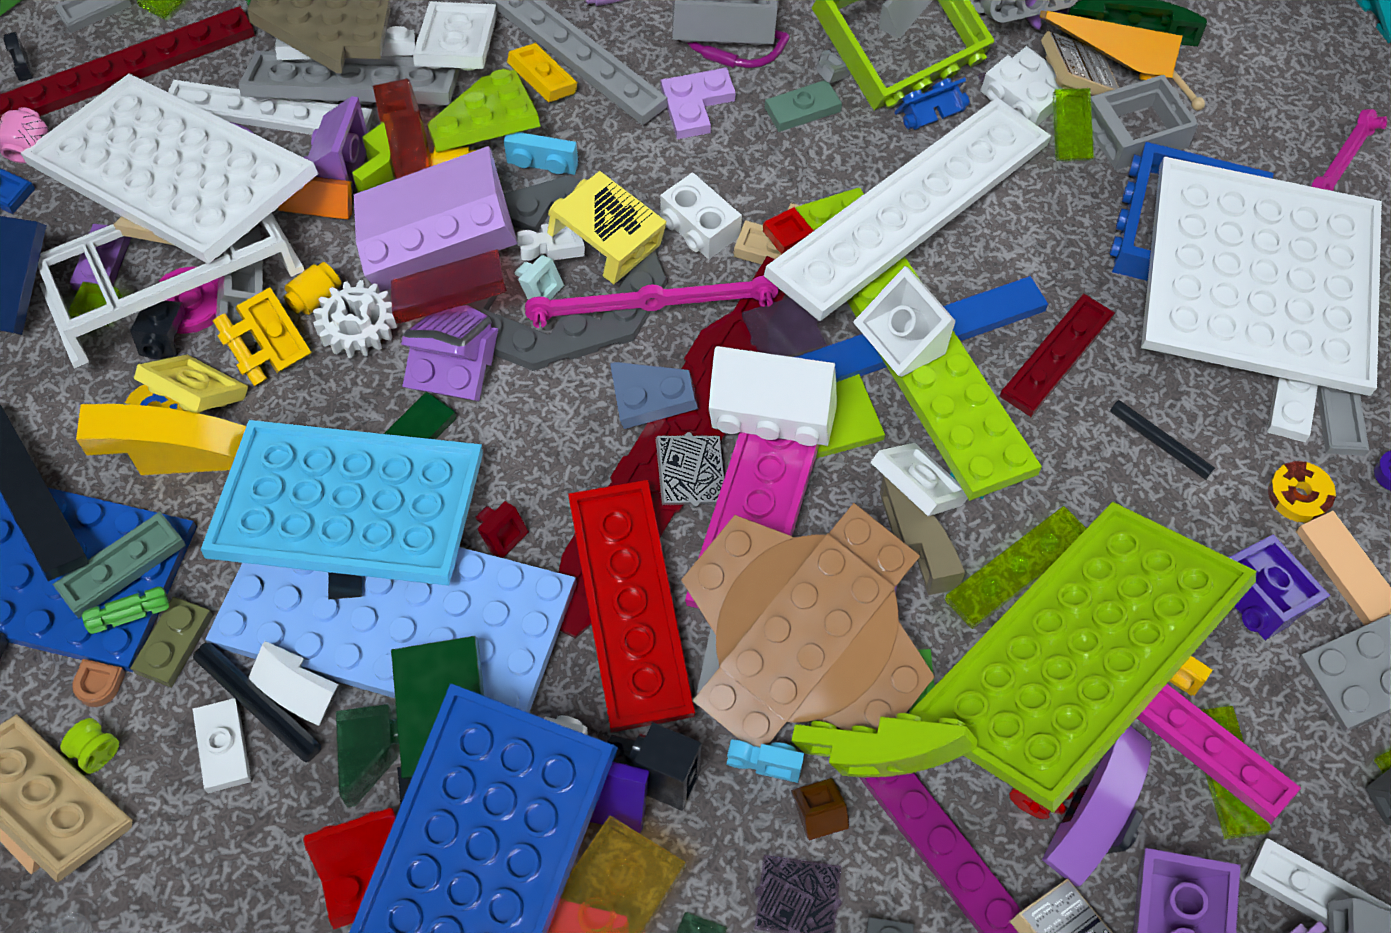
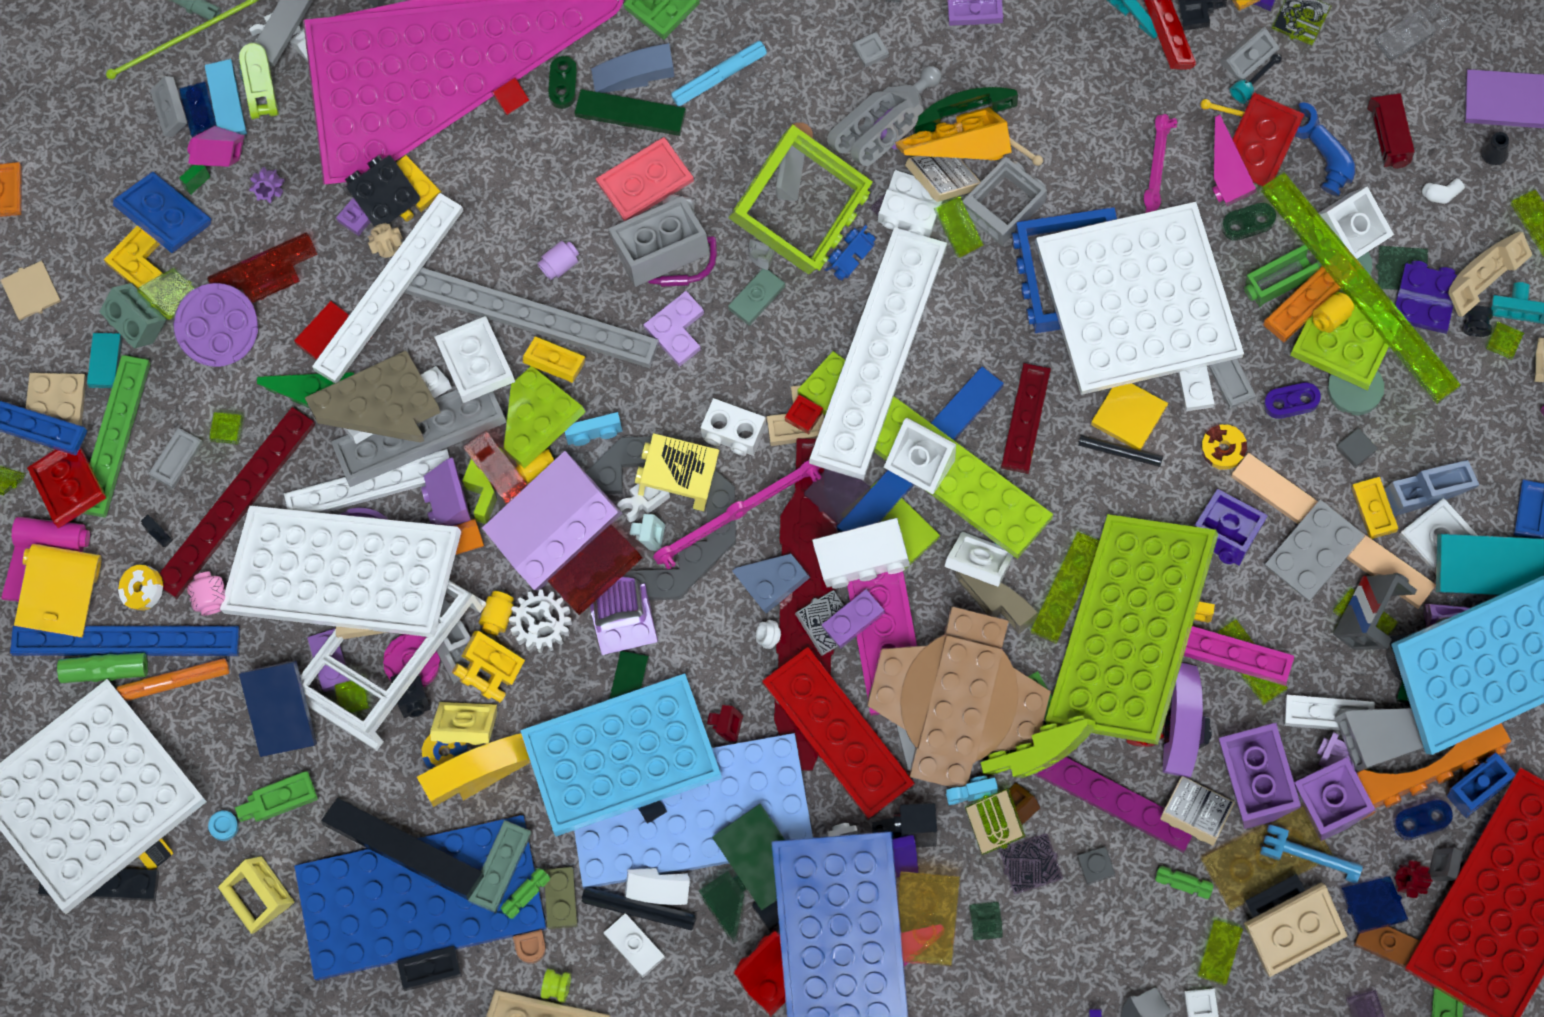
camera: 20 degrees left, 10 degrees up
(611, 450) = (768, 634): none -> white plate
(723, 475) = (853, 619): none -> medium lavender plate
(777, 815) = (995, 821): none -> piece
(1192, 403) = (1129, 415): none -> yellow tile

